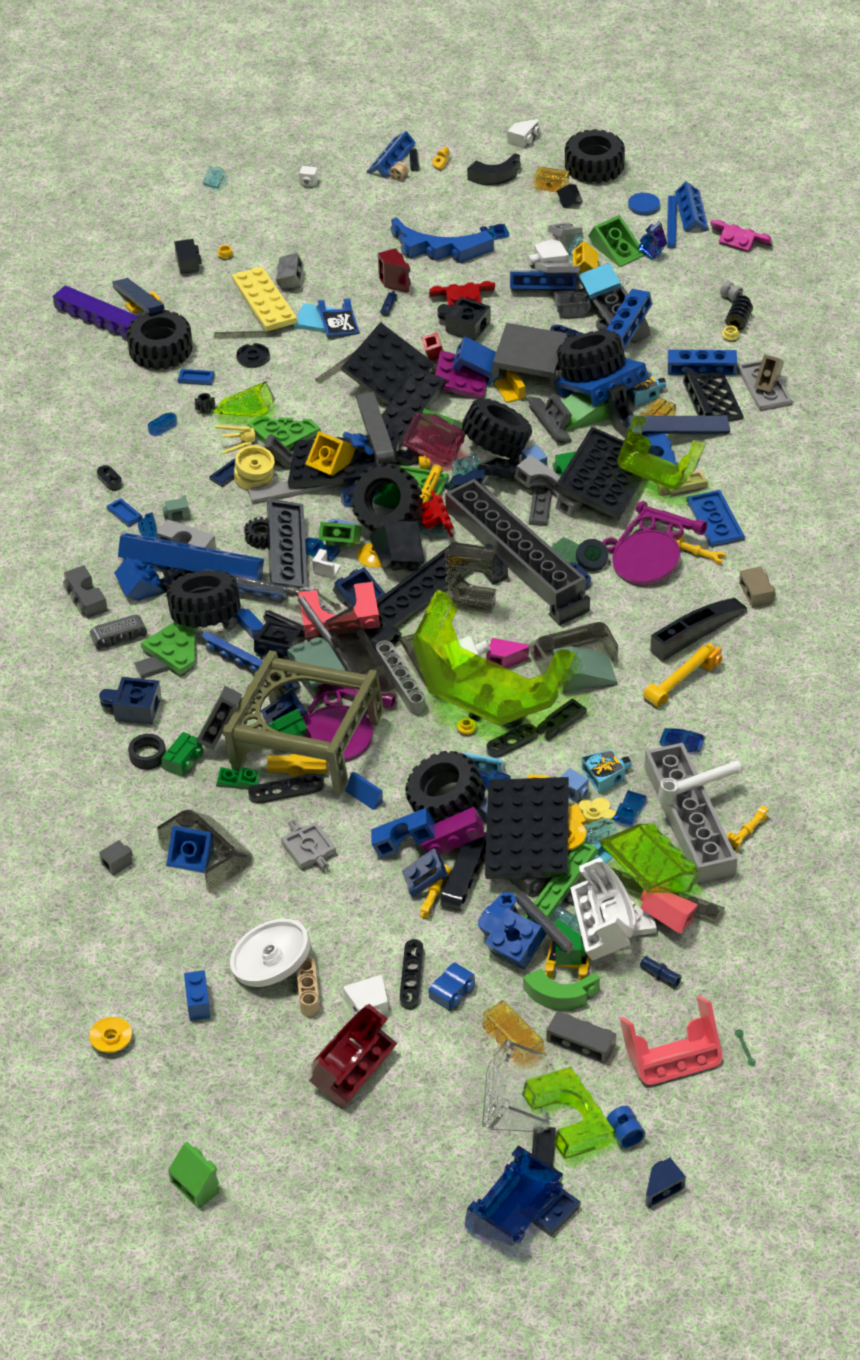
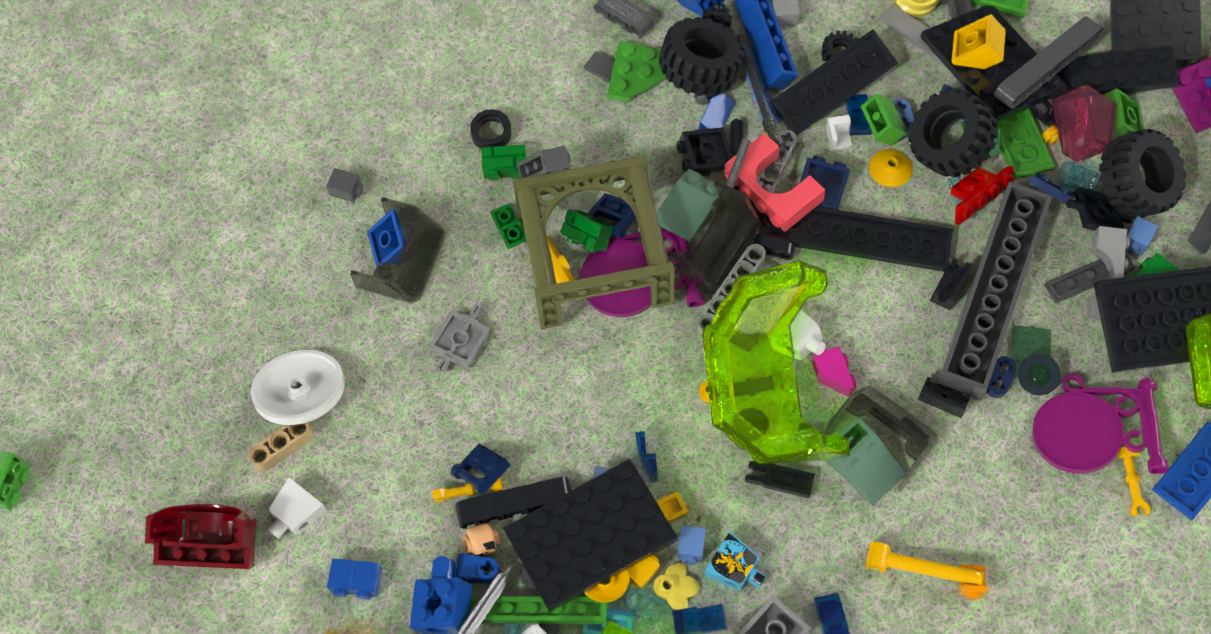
camera: 60 degrees right, 20 degrees up
(107, 1028) = (130, 302): yellow dish -> none
(133, 700) = (541, 80): dark blue brick -> none
(197, 995) = (217, 354): blue brick -> none
(240, 656) = (661, 140): blue plate -> none
(285, 785) = (518, 278): black beam -> none
(359, 441) = (1011, 57): blue plate -> none
(364, 791) = (559, 348): blue slope -> none
(388, 836) = (522, 425): blue arch -> none
(398, 545) = (903, 184): black slope -> none
(411, 974) = (354, 532): black beam -> none
(434, 473) = (1001, 162): yellow pin -> none
(438, 772) = (598, 447): black tyre -> none
(456, 832) = (541, 464): magenta brick -> none
(469, 558) = (894, 276): clear smoke arch -> none
(479, 899) = (480, 540): none -> light nougat head
(486, 763) = (670, 437): medium azure slope -> none
(515, 734) = (700, 445): black beam -> none
(693, 627) = (1011, 544): black slope -> none
(756, 586) = (1120, 576): dark tan brick -> none

